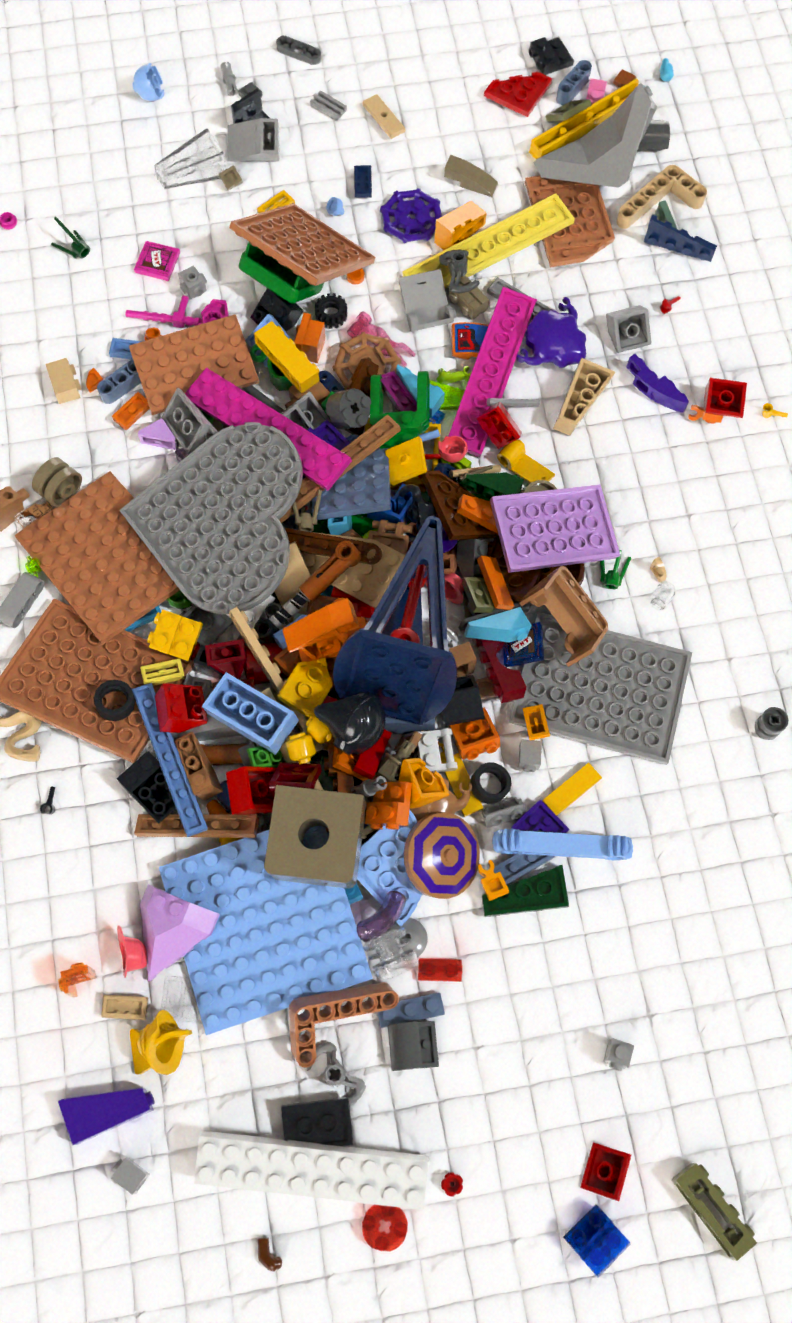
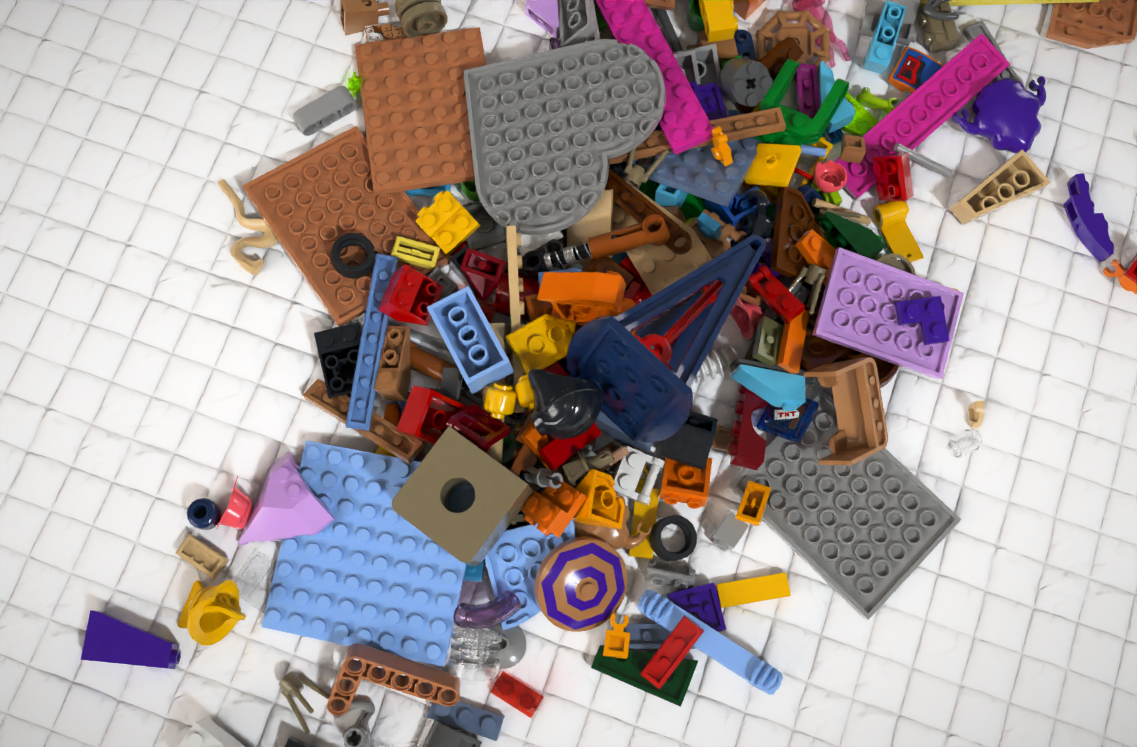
camera: 30 degrees right, 5 degrees up
(49, 802) = (243, 321): black hand -> none
(77, 974) = (162, 503): clear orange bracket -> none
(114, 973) = (204, 514): none -> dark blue head
(129, 1175) = (117, 718): light grey brick -> none
(259, 1065) = (292, 687): none -> dark tan plant
(263, 758) = (457, 389): bright green slope -> none
(361, 468) = (721, 149): none -> light orange plate
(385, 531) = (709, 227): none -> dark azure plate
(433, 325) = (884, 38): none -> medium azure slope
(457, 419) = (852, 148): none -> medium nougat slope
(464, 659) = (713, 398): medium nougat panel -> none
(466, 557) = (775, 294): none -> red plate
(484, 528) = (815, 277): none -> dark tan plant
(539, 867) = (672, 652): none -> red tile
(583, 512) = (929, 314): none -> dark purple plate
(612, 579) = (920, 397): green plant -> none
(629, 328) = (1094, 143): light grey slope -> none
(771, 723) = (1002, 639): dark grey wheel -> none

